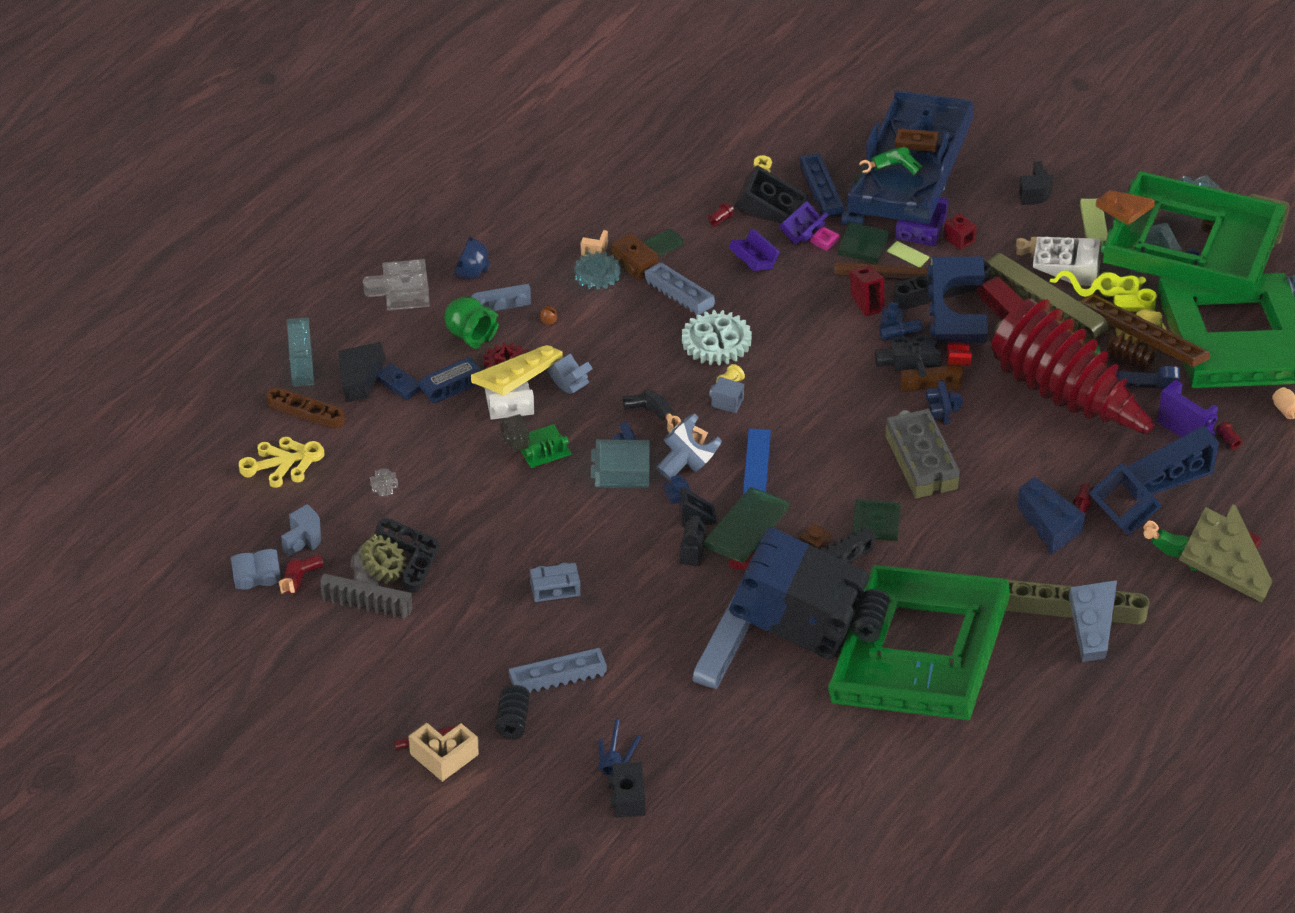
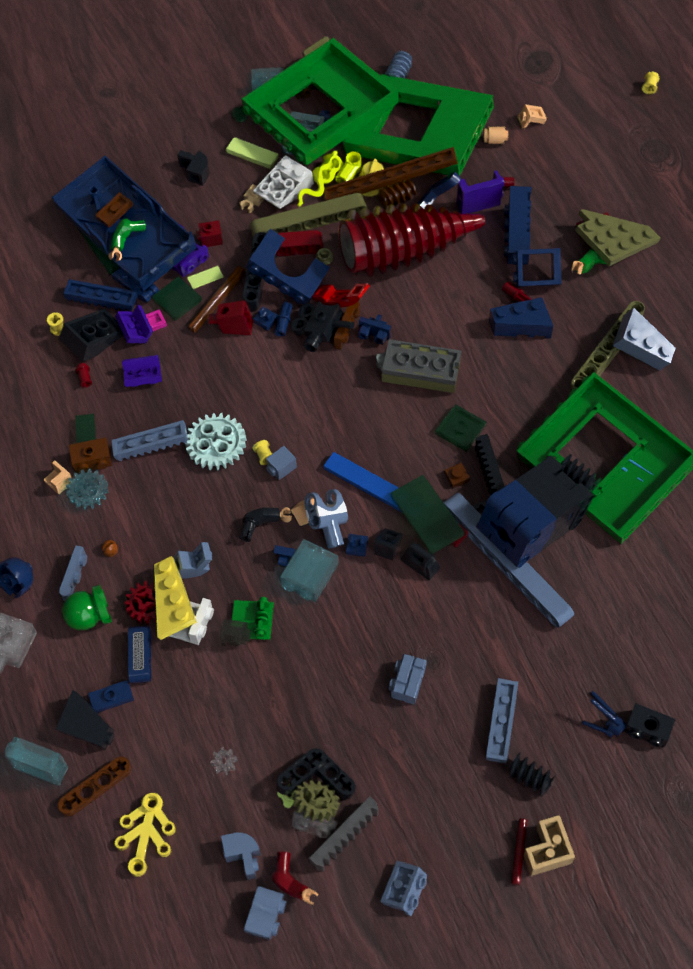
camera: 60 degrees left, 15 degrees up
(340, 662) = (404, 887): none -> sand blue bracket
(1124, 206) = (274, 123): dark orange wing -> none

